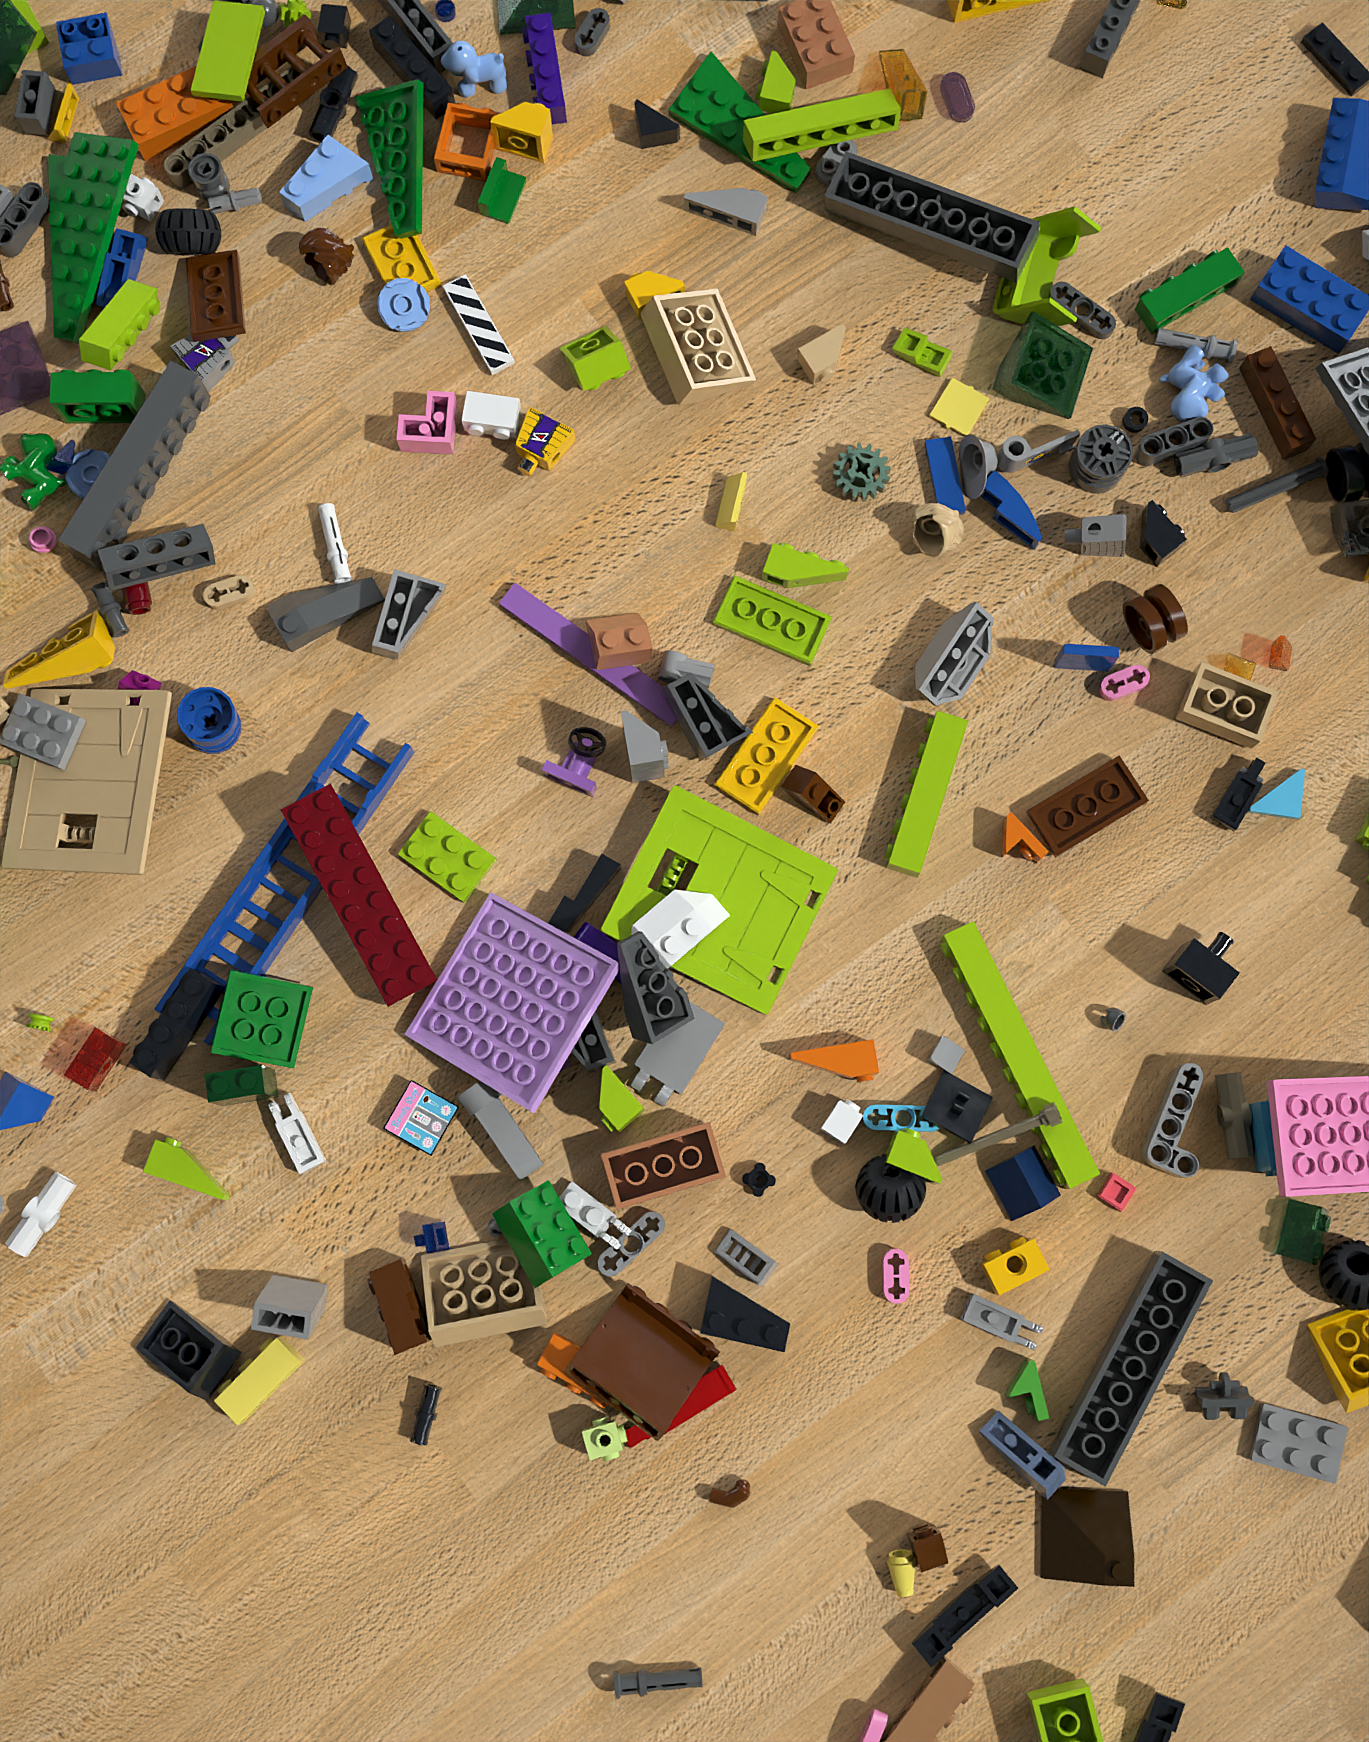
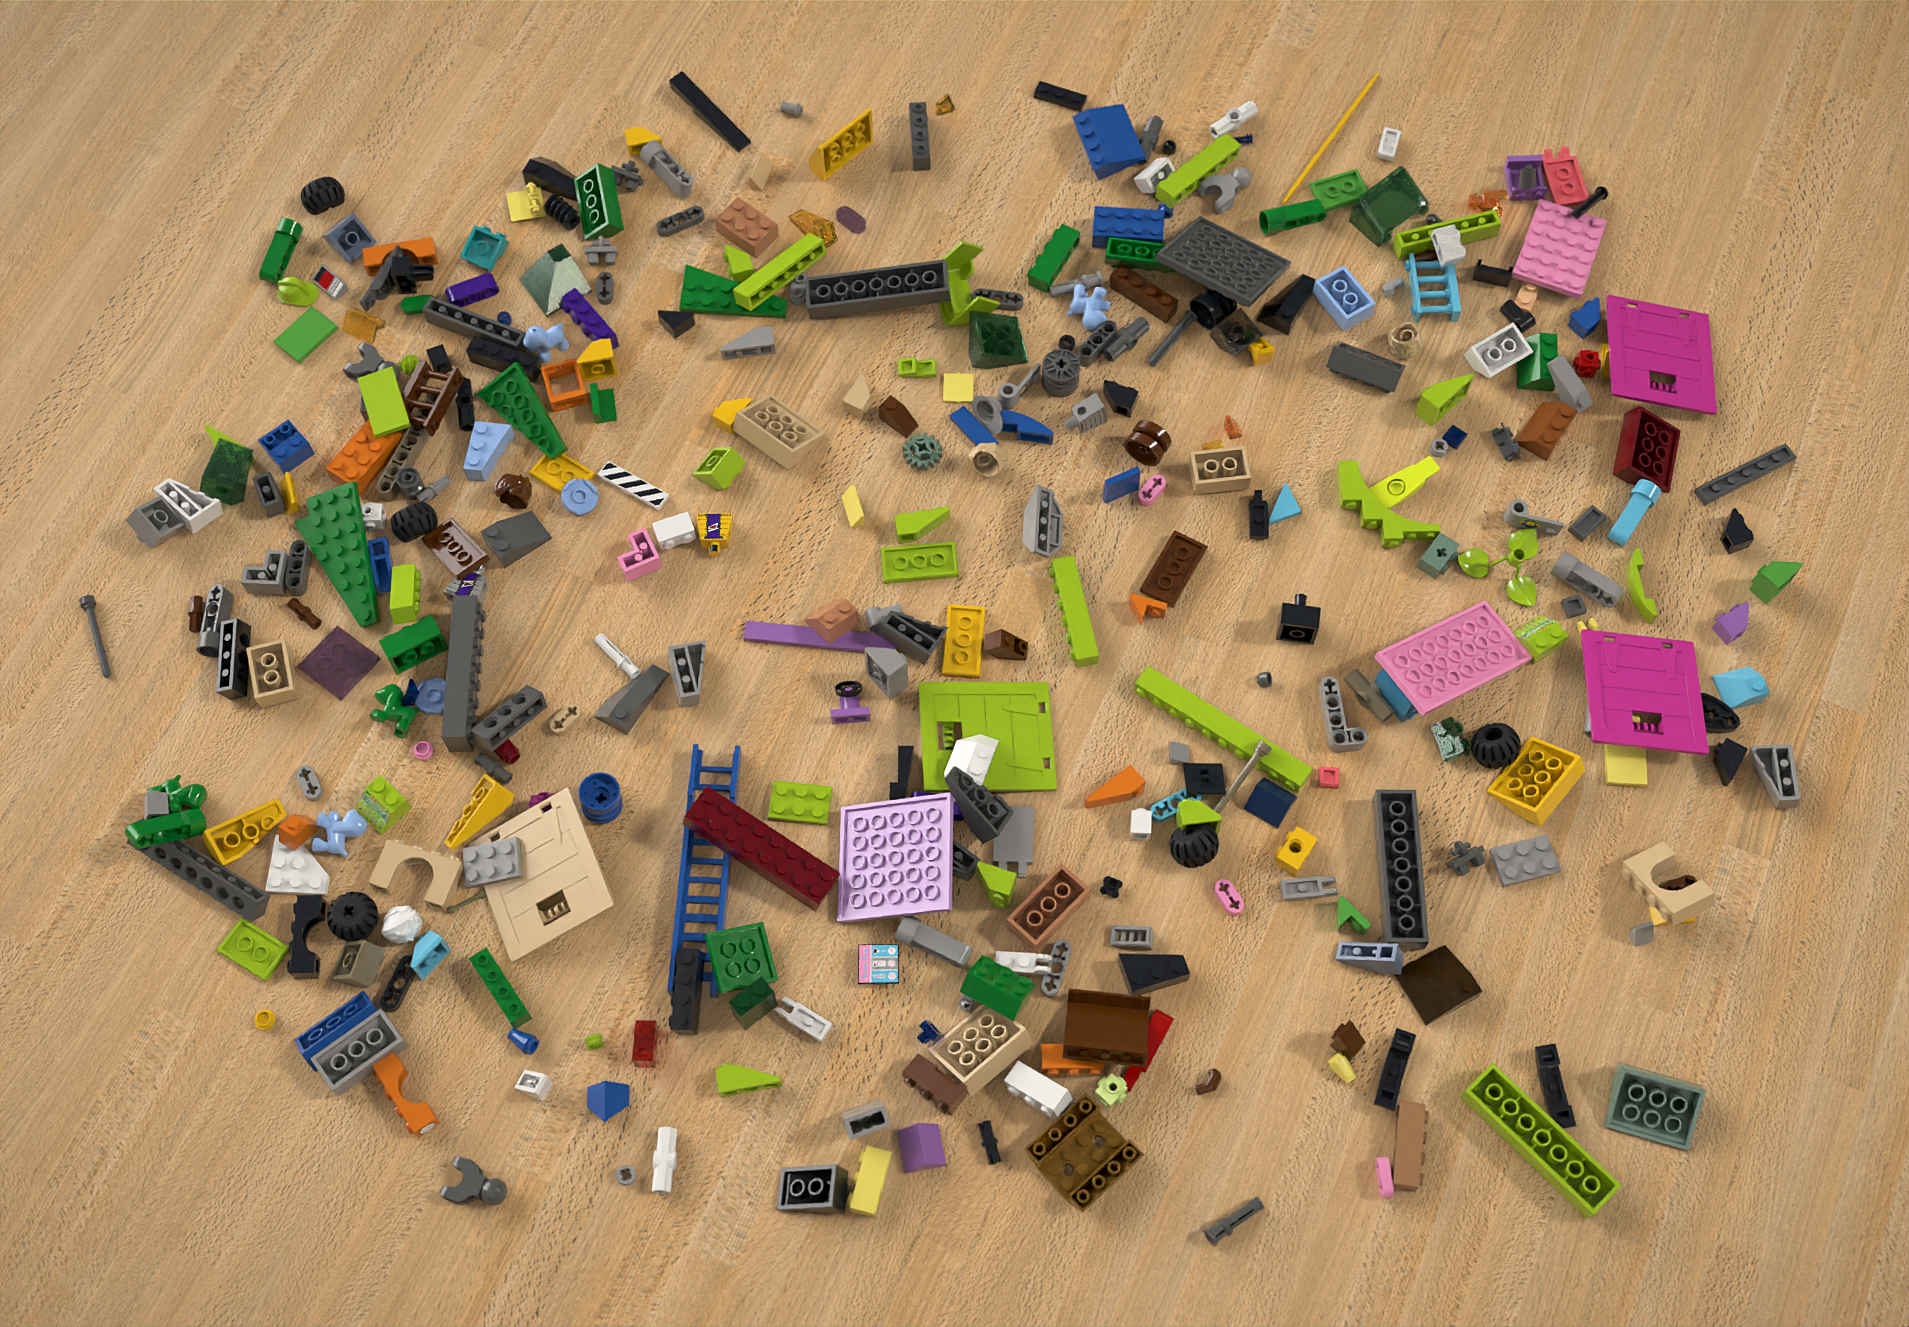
camera: 30 degrees left, 15 degrees down
(298, 318) = (515, 537): none -> dark grey slope
(344, 1373) = (921, 1147): none -> medium lavender slope
(517, 1391) = (1038, 1091): none -> white wedge
(532, 1520) = (1070, 1143): none -> pearl gold slope
(857, 407) = (897, 416): none -> reddish brown slope
(1297, 339) = (1134, 254): none -> green slope

